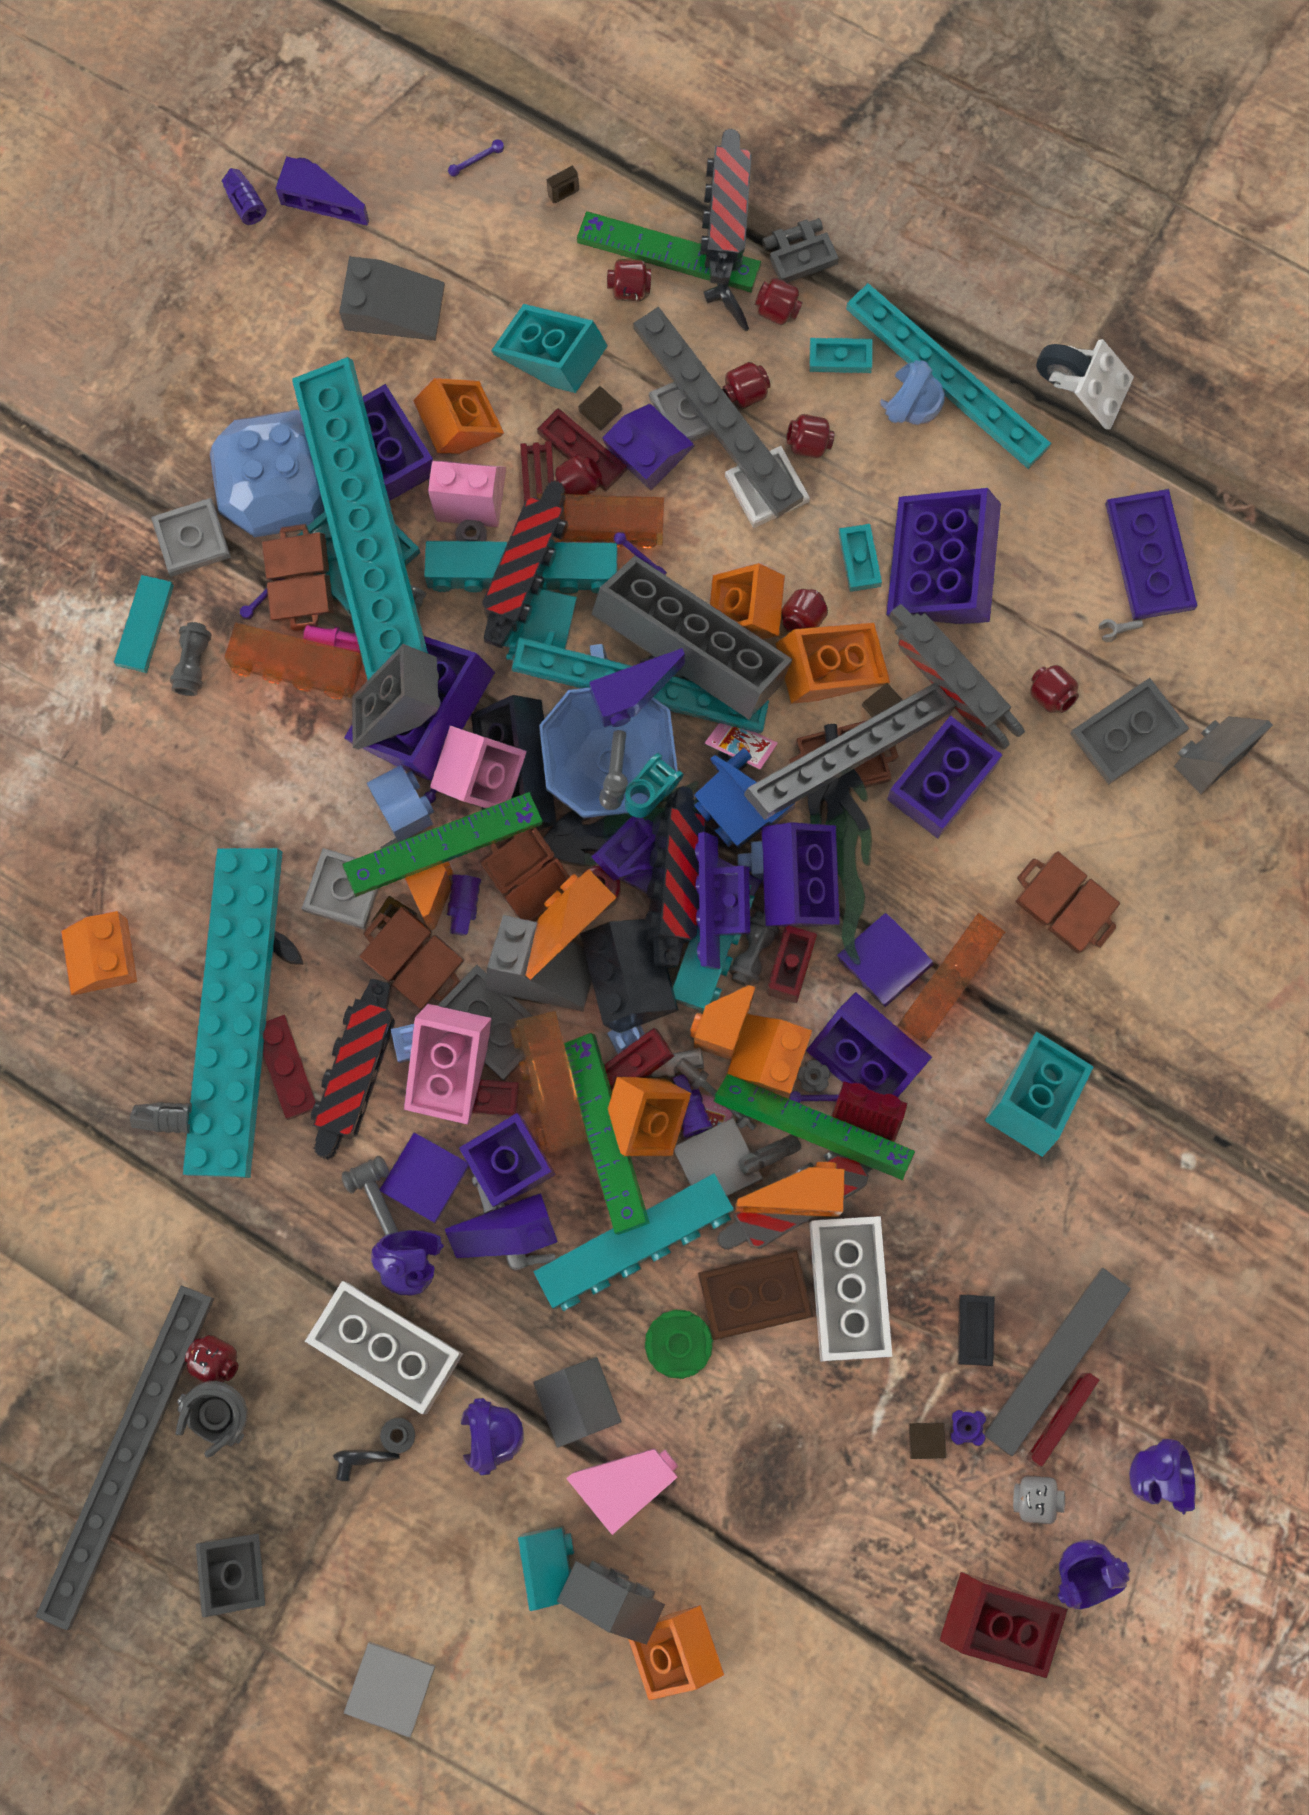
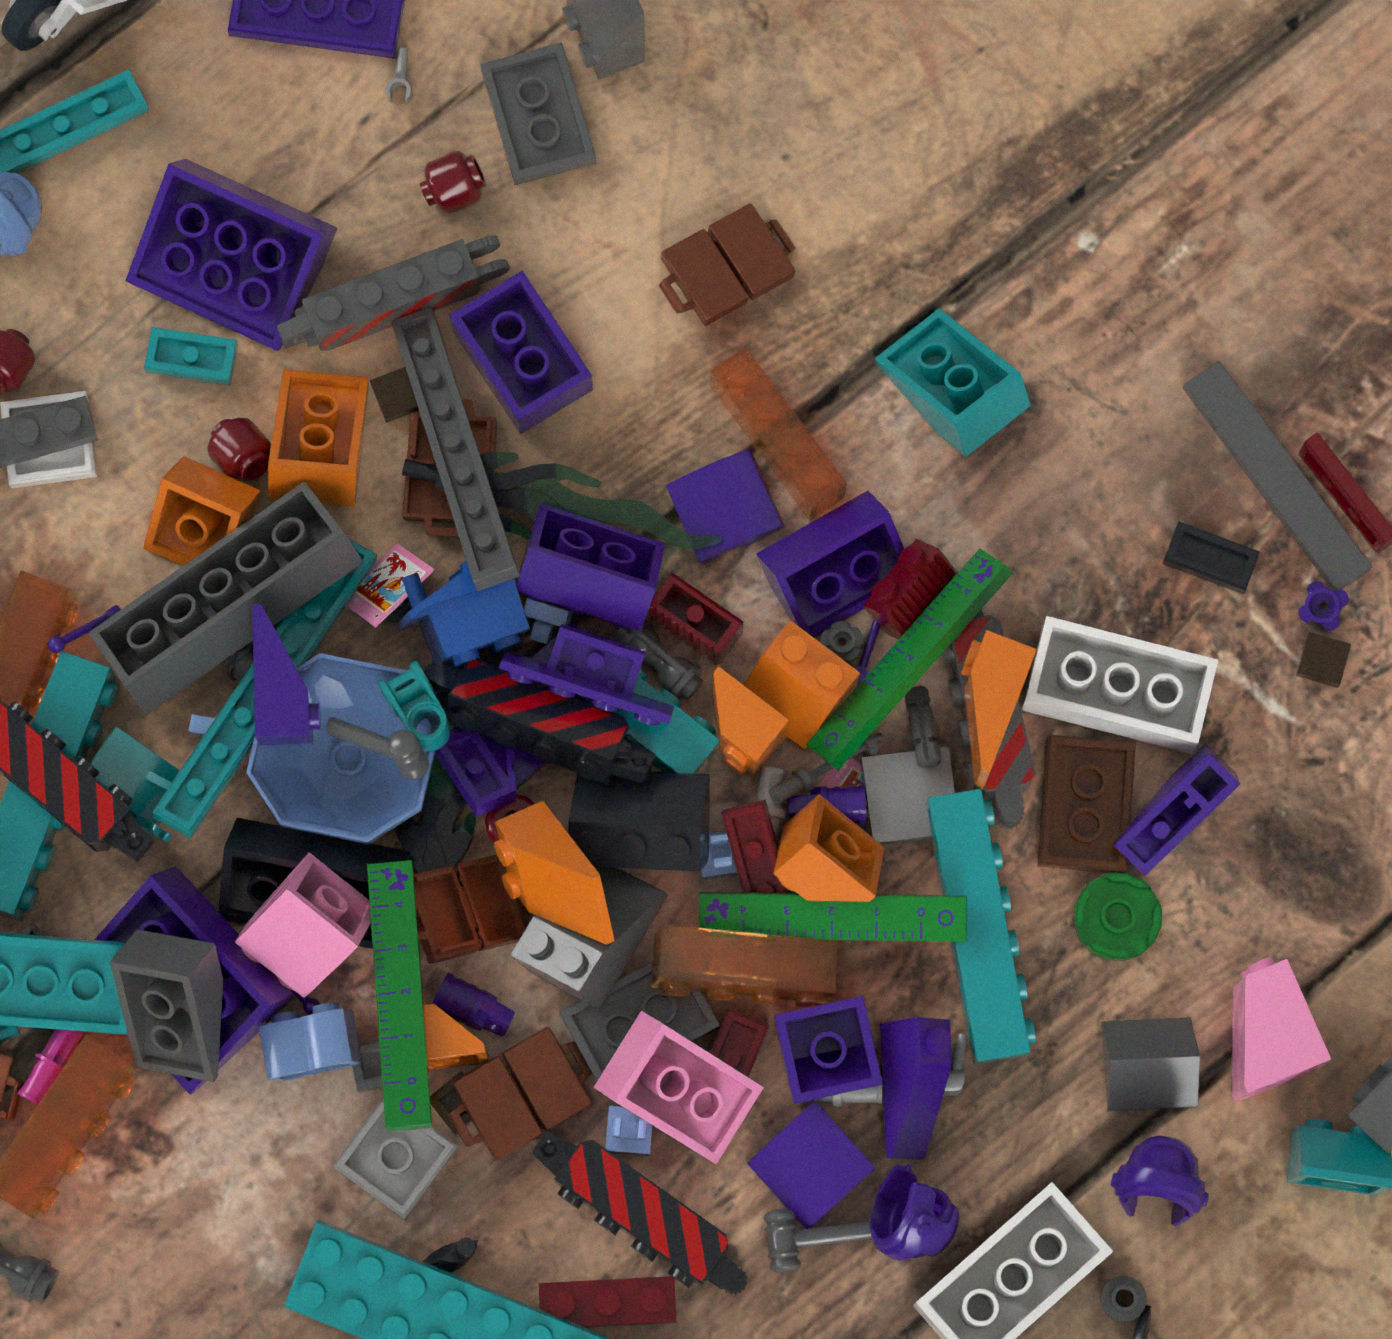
camera: 75 degrees left, 0 degrees up
(773, 1363) = (1177, 808): none -> dark purple slope

